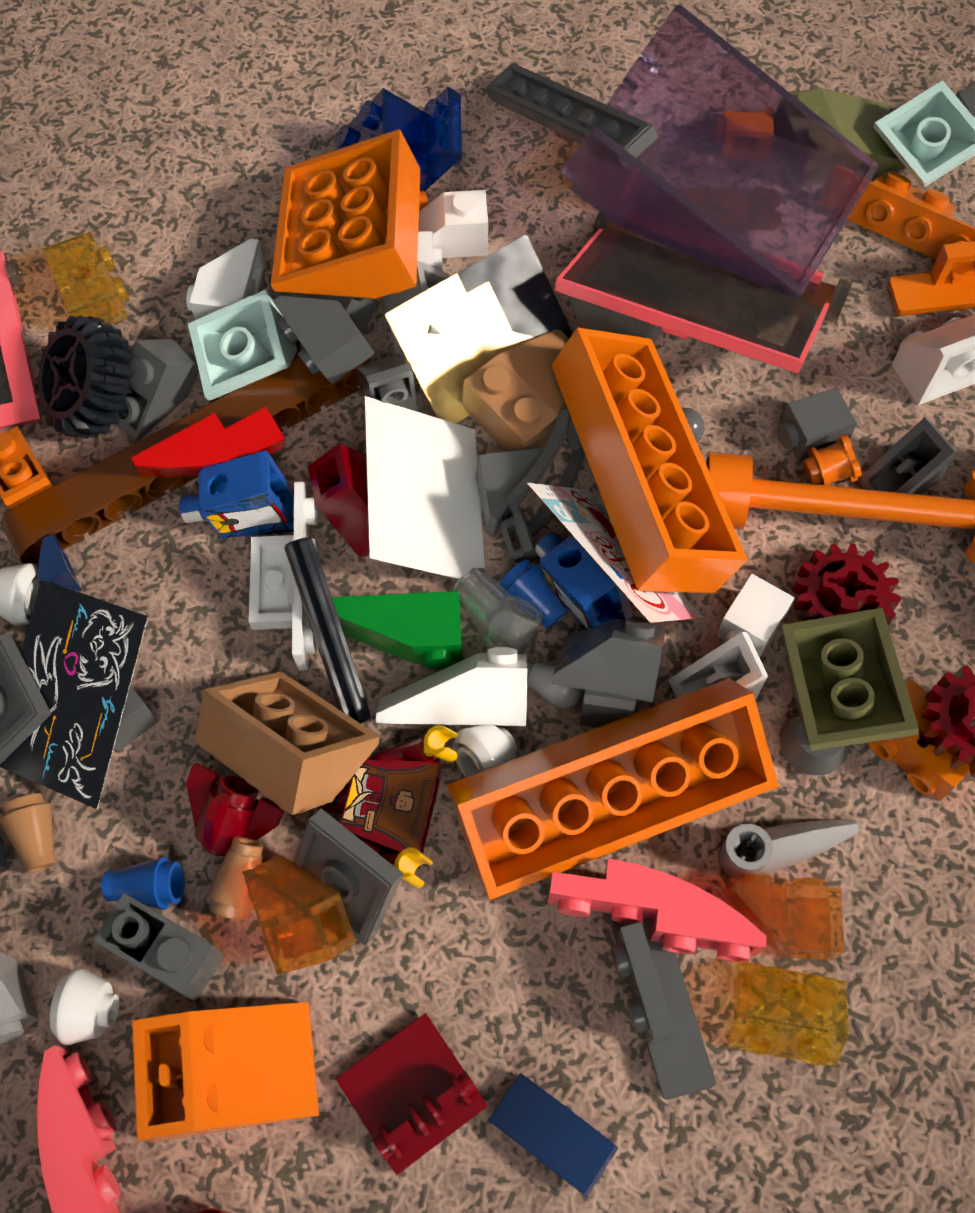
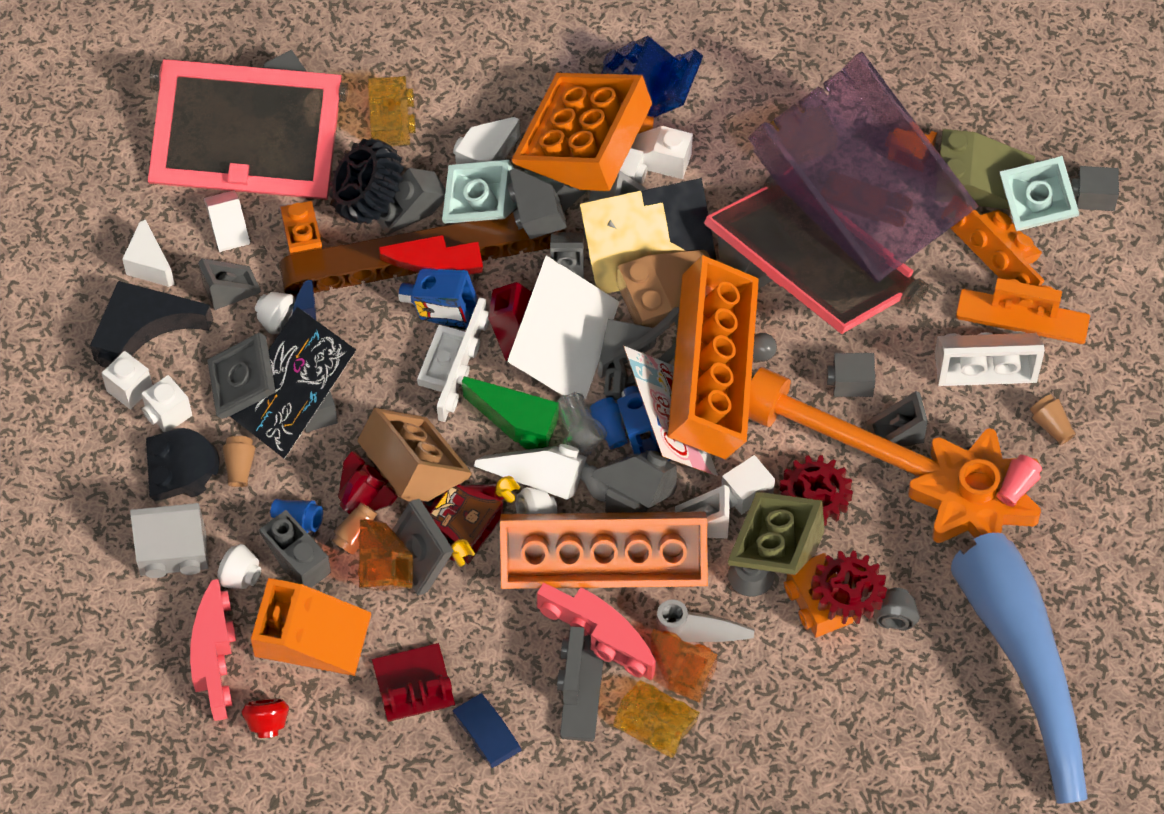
camera: 20 degrees right, 5 degrees down
(327, 629) = (464, 397): black axle -> none
(567, 110) = (774, 94): dark grey tile -> none
(832, 463) = (849, 404): orange brick -> none

